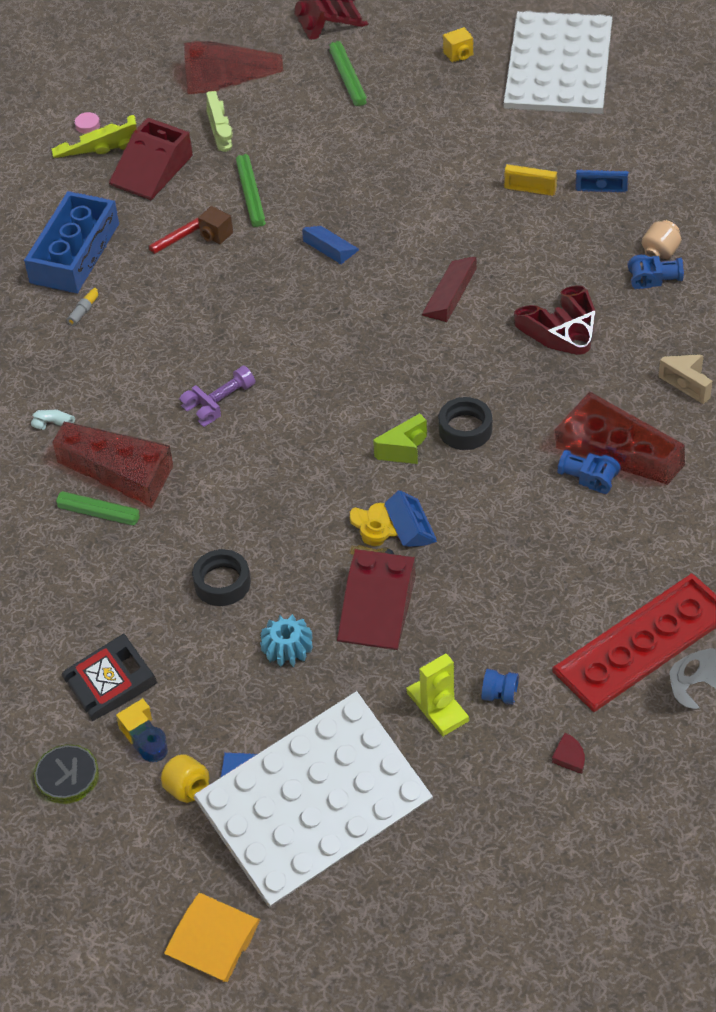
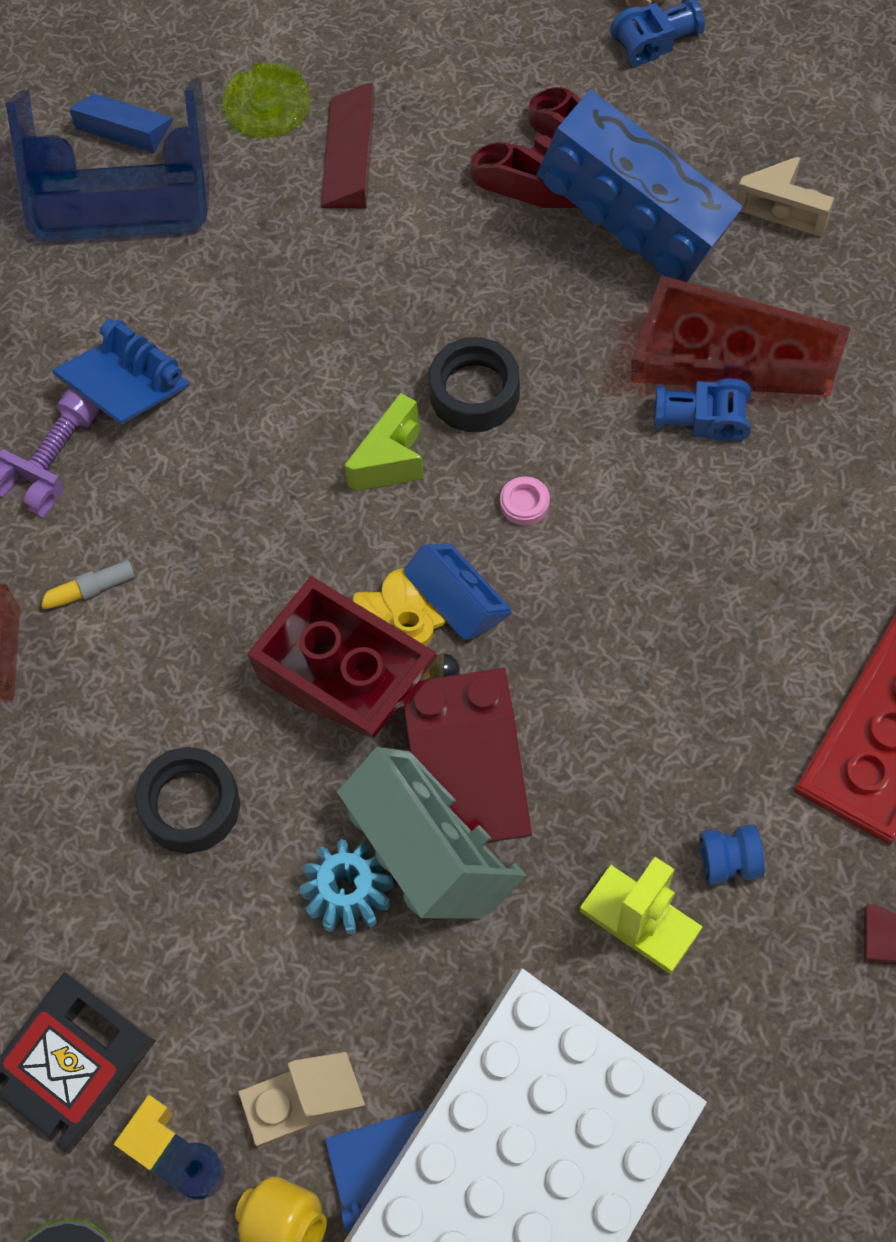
camera: 20 degrees left, 15 degrees up
(213, 464) = (88, 585): none -> light grey piece
(221, 731) = (302, 1098): none -> tan slope
(275, 366) = (123, 373): none -> blue hinge
(282, 276) = (113, 200): none -> clear blue windscreen
(326, 527) = (339, 659): none -> dark red slope
(334, 626) = (422, 841): none -> sand green wedge
(415, 253) = (268, 112): none -> clear neon green tile
(468, 489) = (524, 500): none -> bright pink tile
(595, 344) = (636, 188): none -> blue brick

